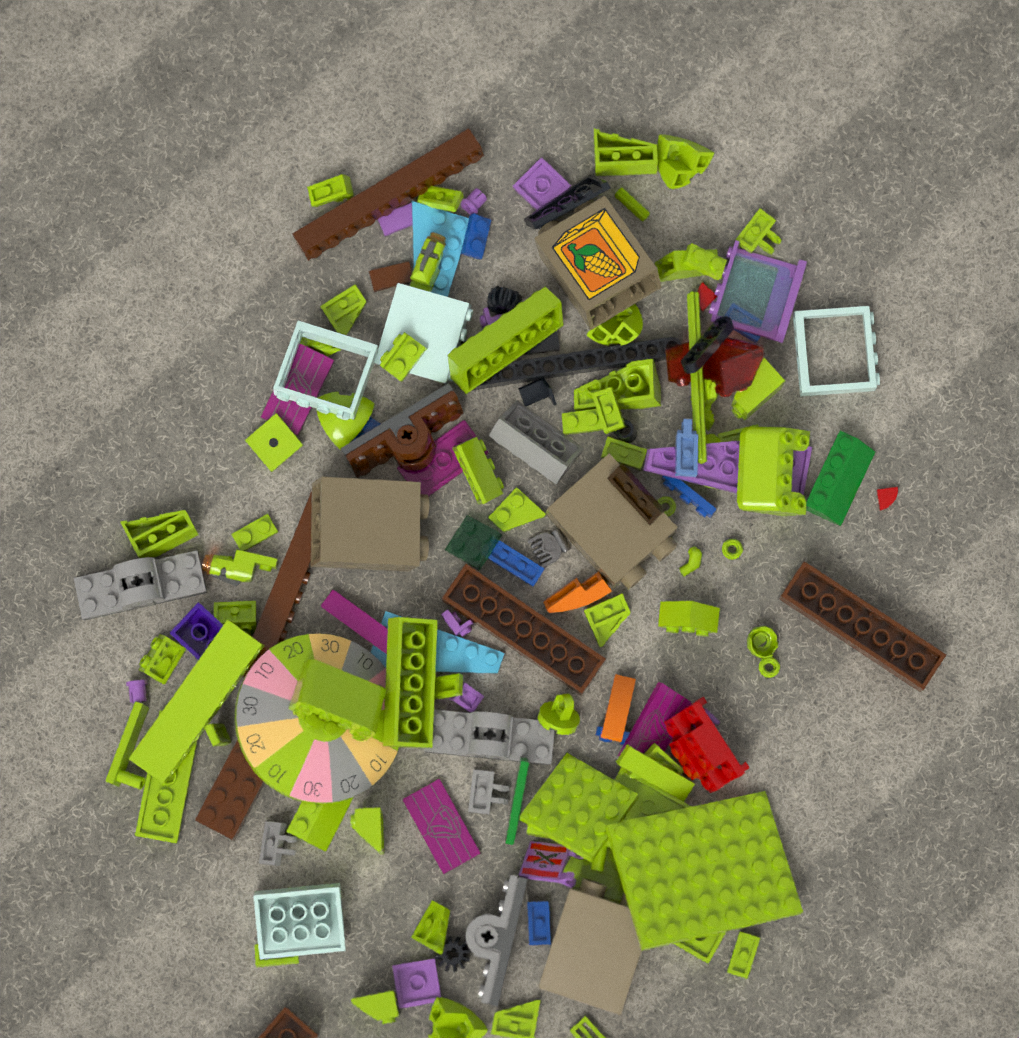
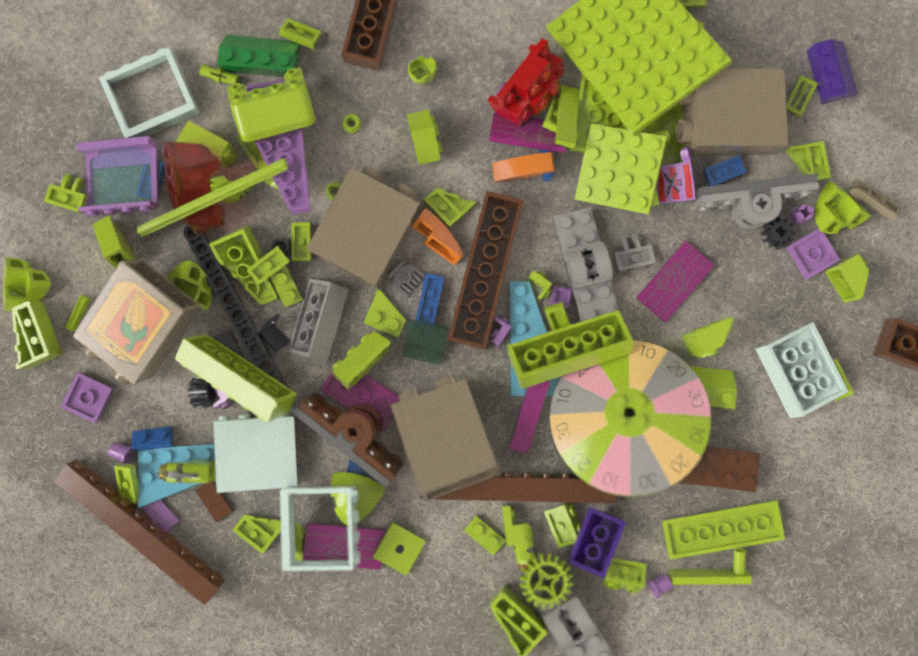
camera: 110 degrees left, 5 degrees up
(179, 574) = (554, 596): none -> lime gear
(196, 702) = (656, 530): lime tile -> none
(218, 734) = (674, 500): lime tile -> none
(273, 843) = (745, 417): light grey hinge -> none
(331, 190) = (151, 583): lime plate -> none
(338, 698) = (613, 404): lime windscreen -> none
(402, 356) = (282, 463): lime bracket -> none
(433, 927) = (764, 256): lime wing -> none
(464, 995) = (797, 217): none -> medium lavender bush
(494, 684) = (540, 280): none -> lime bracket
(517, 801) = (633, 223): green tile -> none
(559, 715) = (548, 214): lime tile -> none
(566, 201) = (89, 367): black wing -> none
(636, 494) = (334, 210): dark brown plate -> none
(686, 450) = (279, 178): medium blue hinge -> none
(688, 496) = (318, 174): blue plate -> none
(694, 562) = (375, 150): lime arm -> none
(704, 261) = (105, 228): lime plate -> none
(706, 296) = (137, 220): red tile -> none
(707, 344) = (162, 194): black beam -> none
(769, 674) = (441, 53): lime plate -> none
(831, 430) = (208, 71): none -> lime pin
(836, 541) = (298, 35): none -> lime tile
(886, 497) = (262, 12): red tile -> none

